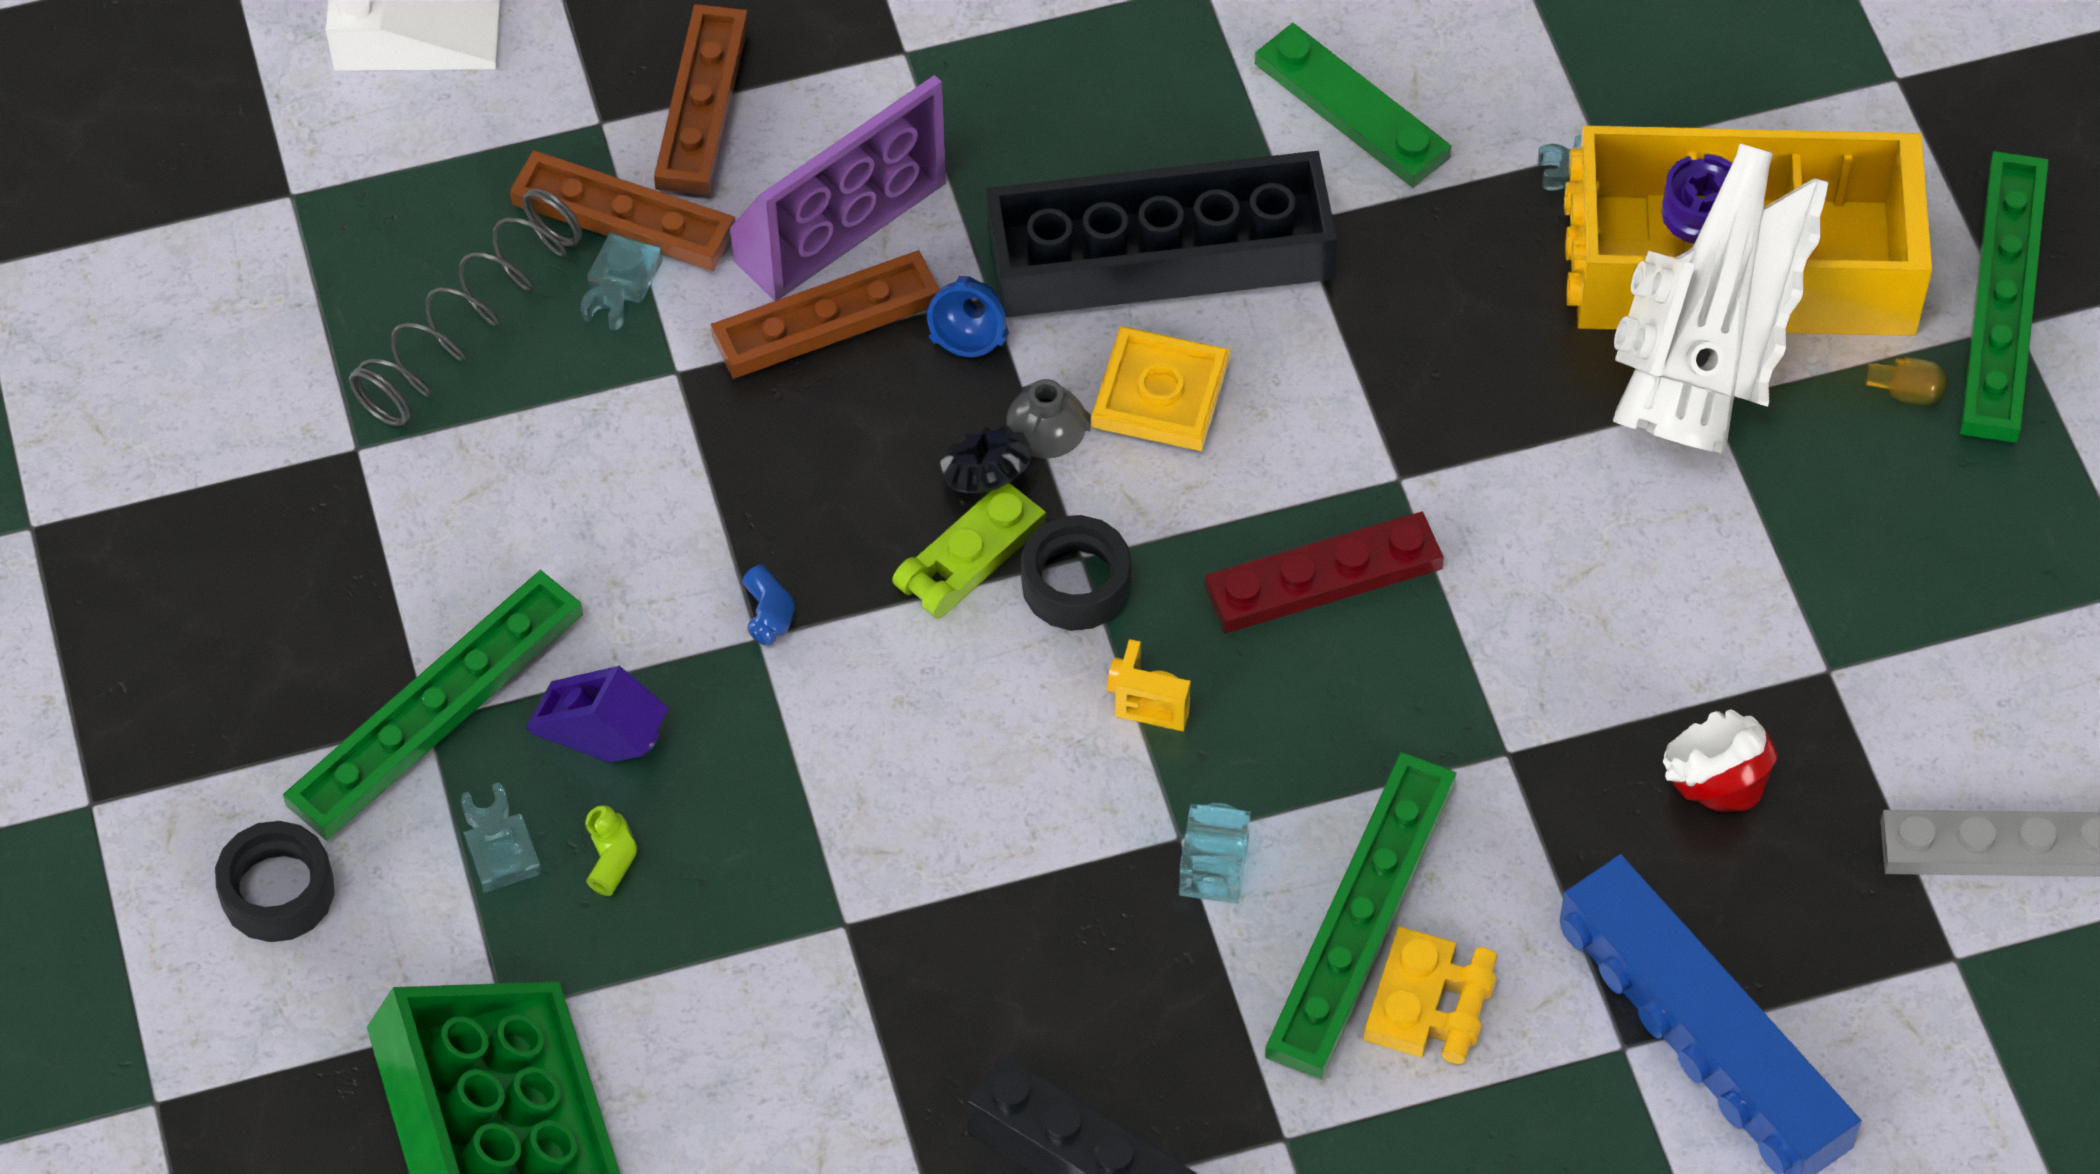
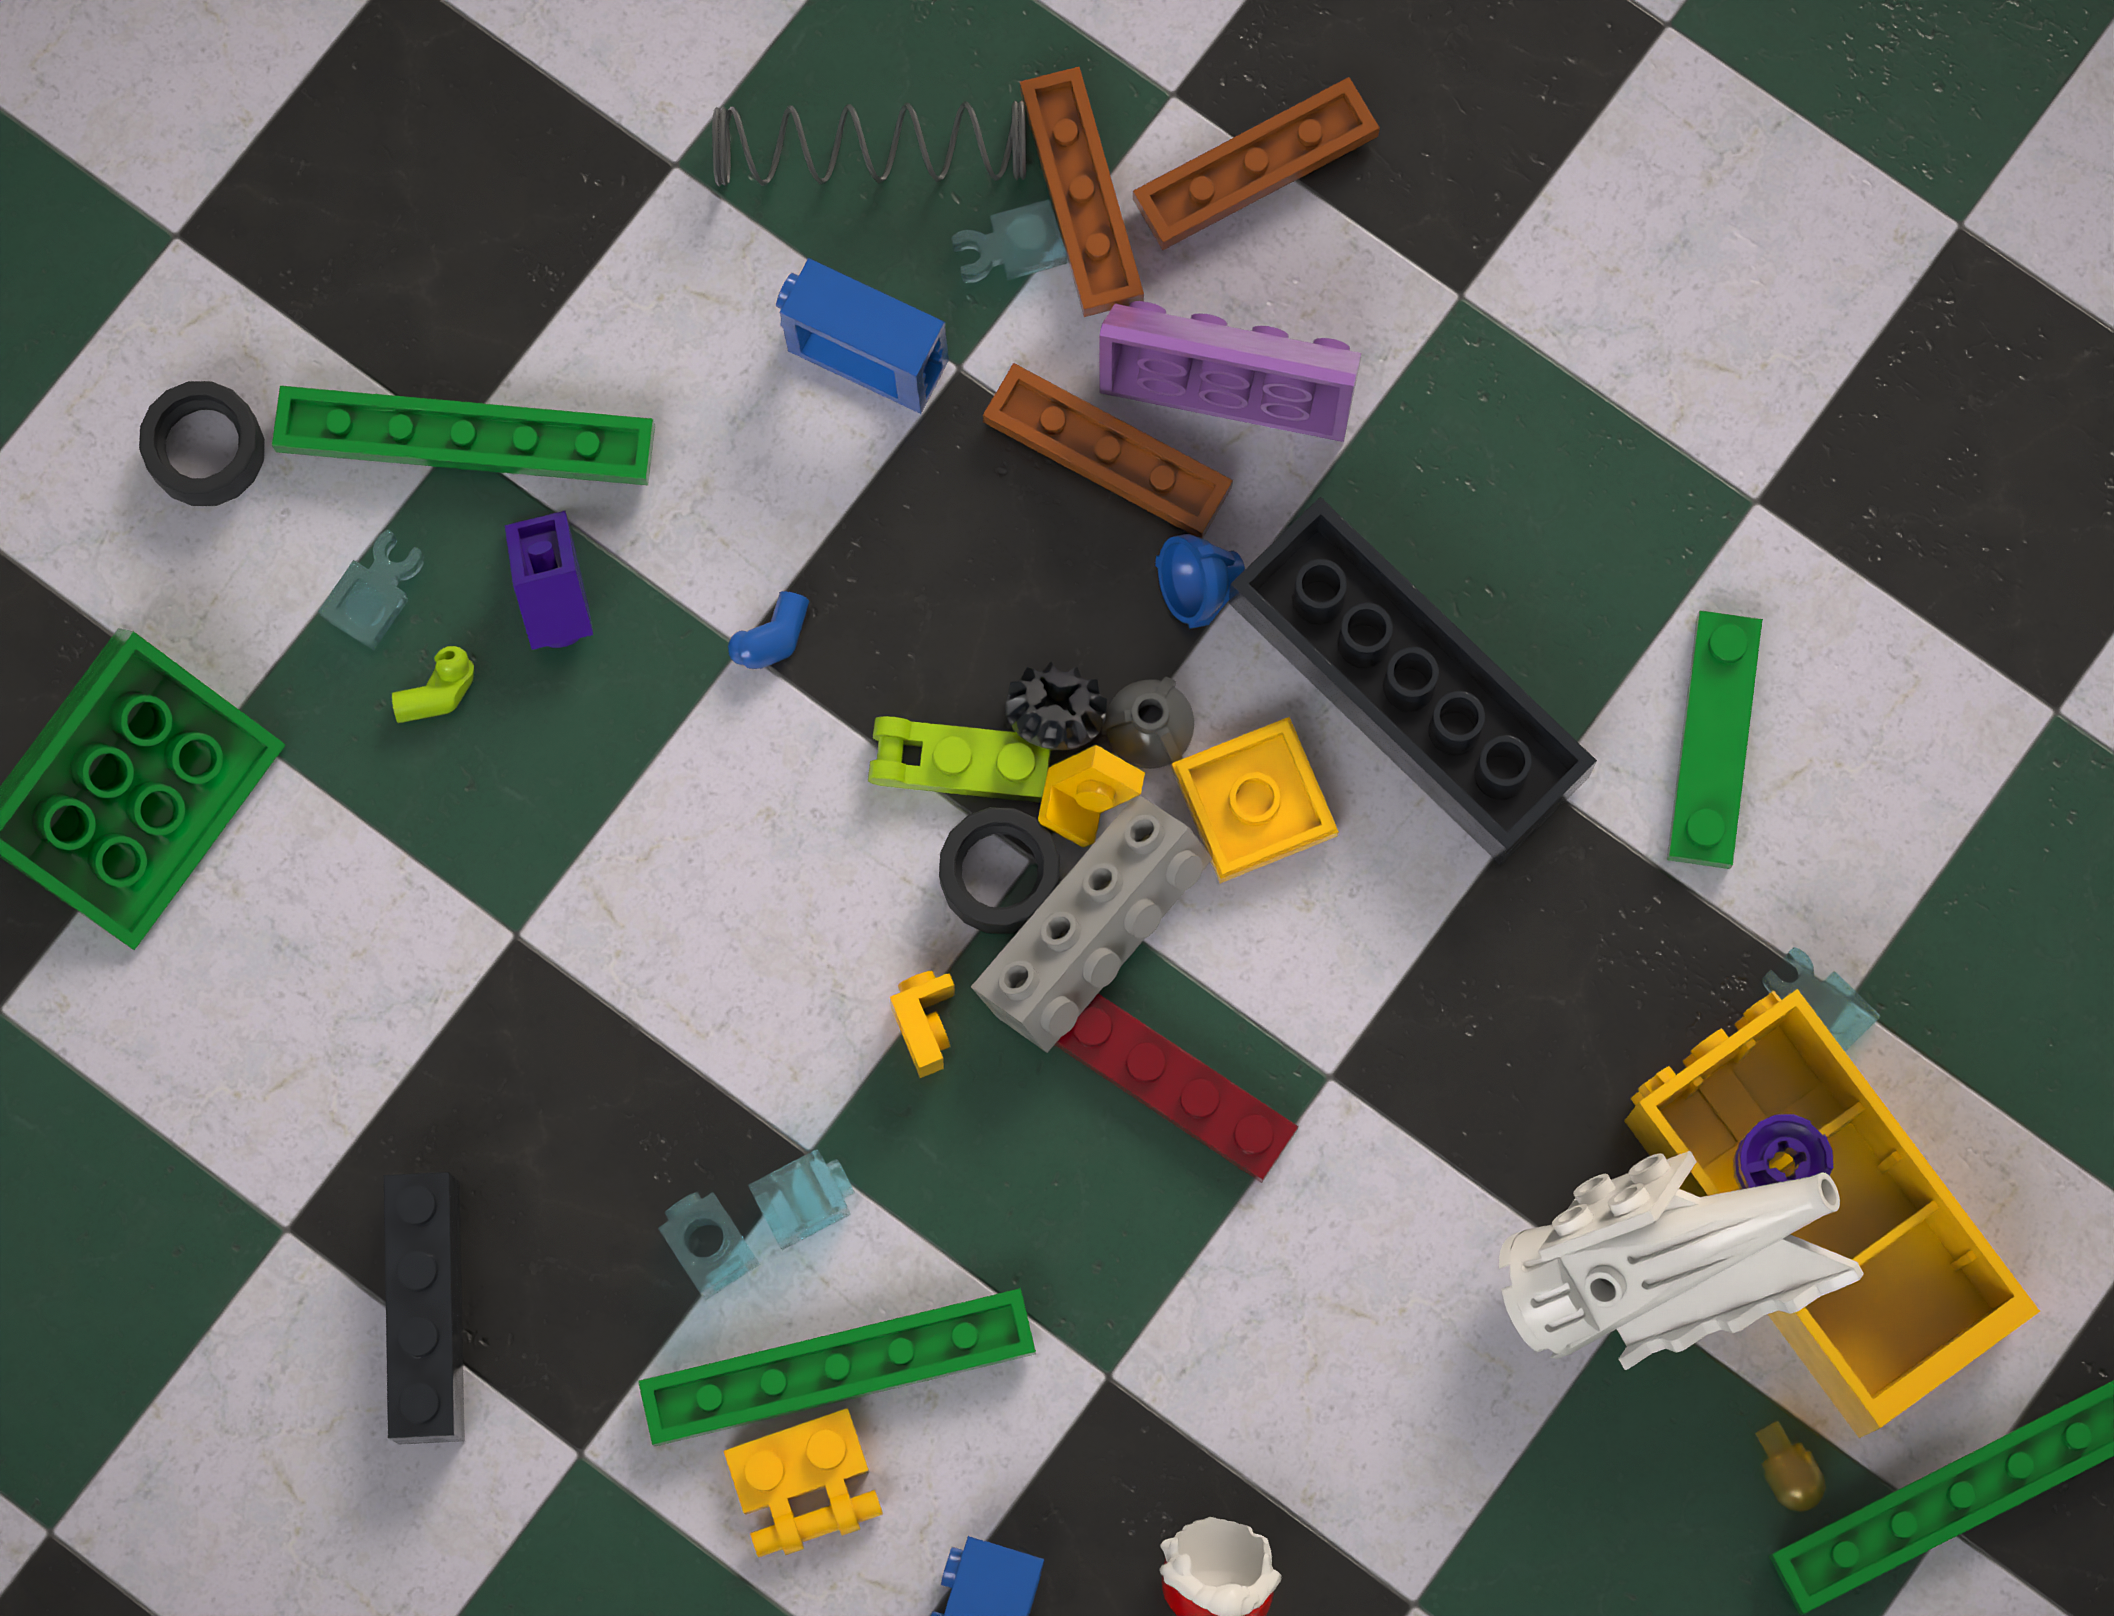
camera: 55 degrees right, 20 degrees up
(598, 366) = (863, 334): none -> blue window
(1065, 471) = (1083, 789): none -> yellow bracket
(1169, 532) = (1092, 922): none -> light grey brick
(1206, 957) = (725, 1266): none -> clear light blue brick

